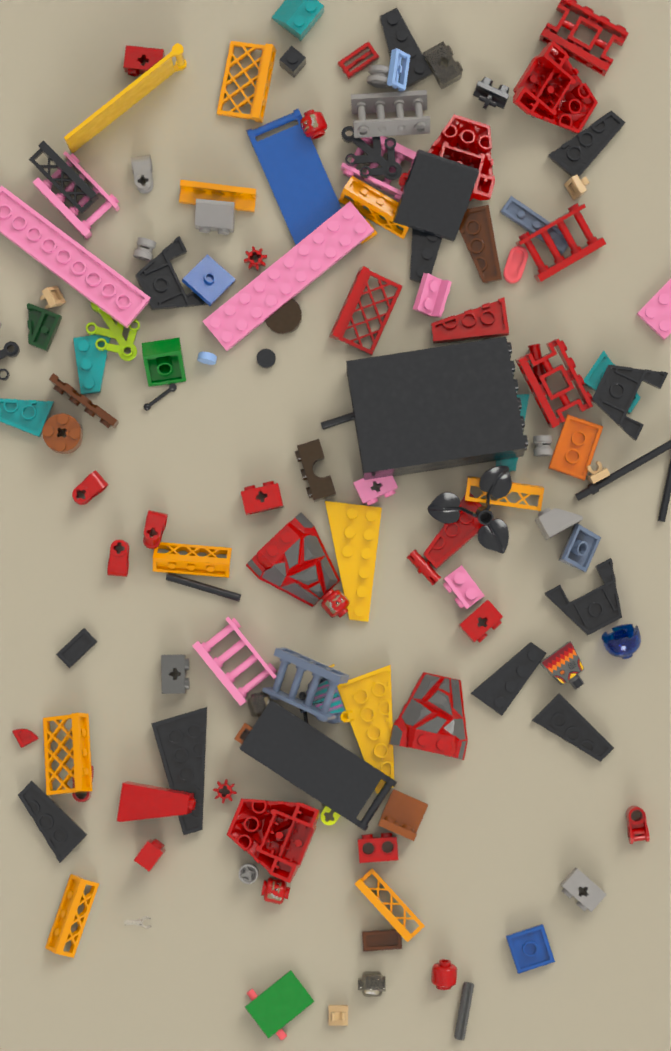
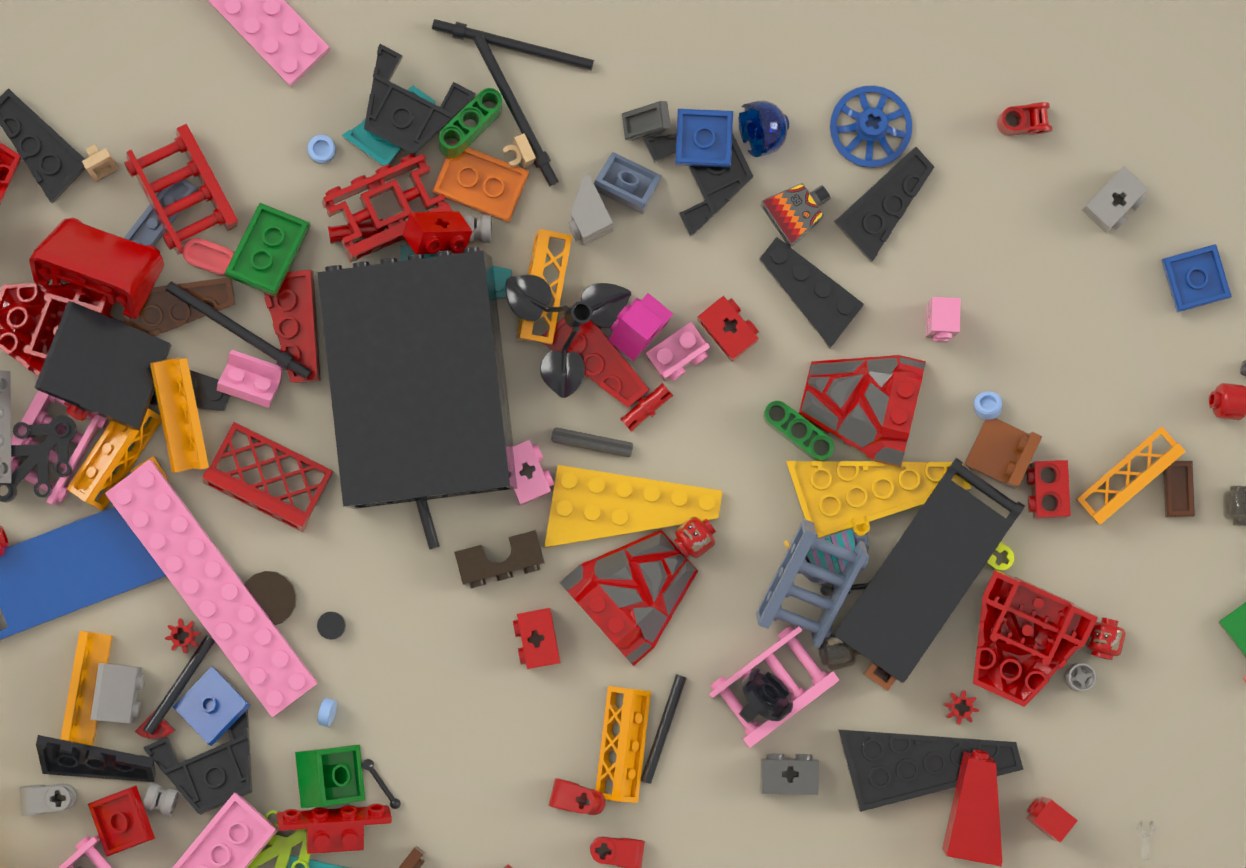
camera: 85 degrees left, 0 degrees up
(128, 365) = (334, 828): none -> red bracket
(129, 223) = (121, 821): none -> red tile
(168, 199) = (84, 760): none -> black wing
(193, 243) = (162, 731): none -> red tile
(221, 257) = (179, 685): none -> black bar
(226, 654) = (765, 696): none -> black tile
(398, 530) = (592, 442): none -> dark grey axle
(405, 248) = (179, 414): none -> light orange fence
(415, 663) = (812, 435): none -> green beam
(434, 804) = (988, 405): none -> light blue tile
(446, 317) = (284, 359): none -> black bar
(479, 559) = (639, 325): none -> dark pink brick
(493, 769) = (943, 318): none -> bright pink brick
(506, 188) = (98, 263): none -> red windscreen
(521, 303) = (267, 249): none -> green tile
(537, 417) = (437, 232): none -> red brick
(593, 337) = (321, 149): none -> light blue tile
(612, 599) = (704, 138): none -> blue plate
(623, 559) = (646, 121): none -> dark grey tile
(624, 439) = (475, 111): none -> green beam
(627, 717) = (871, 126): none -> blue wheel

